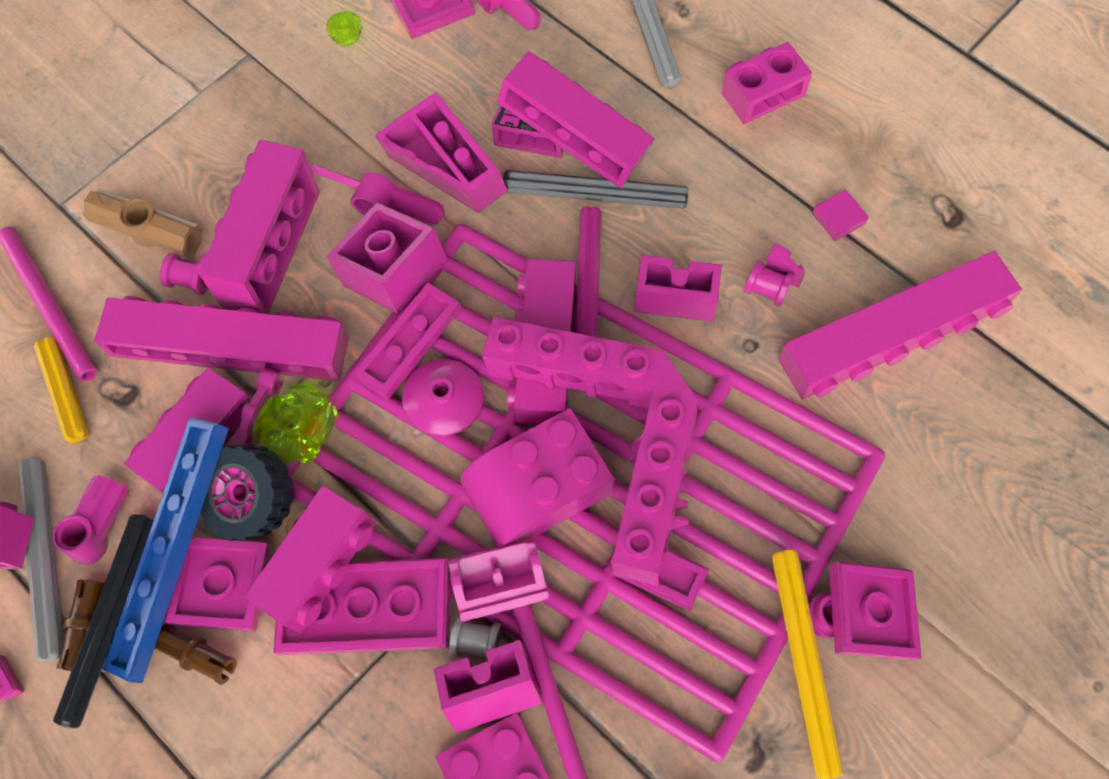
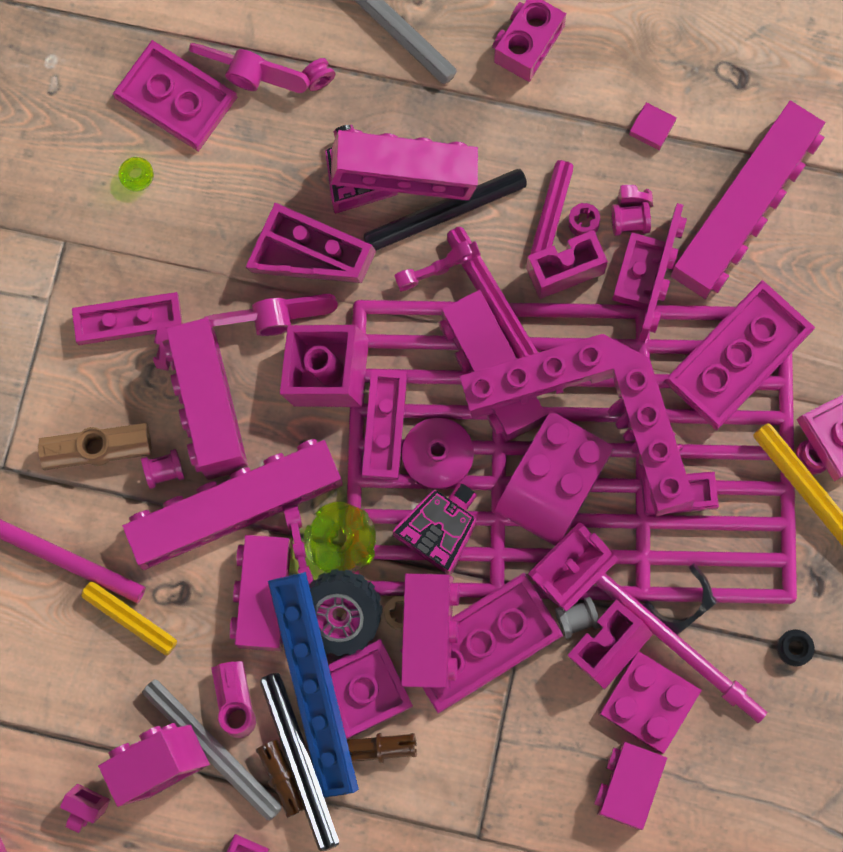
camera: 30 degrees left, 10 degrees up
(243, 130) = (125, 318): none -> dark pink plate
(392, 465) = (439, 527): none -> torso
(554, 23) = (319, 74): none -> dark pink bush
(577, 227) = (459, 254): none -> dark pink piece
(619, 703) = (708, 601): none -> black cap
(703, 232) = (552, 206): none -> dark pink axle
(729, 254) = (584, 208): none -> dark pink bush
(753, 335) = (643, 272): none -> dark pink bracket
(805, 467) = (739, 355): none -> dark pink tile

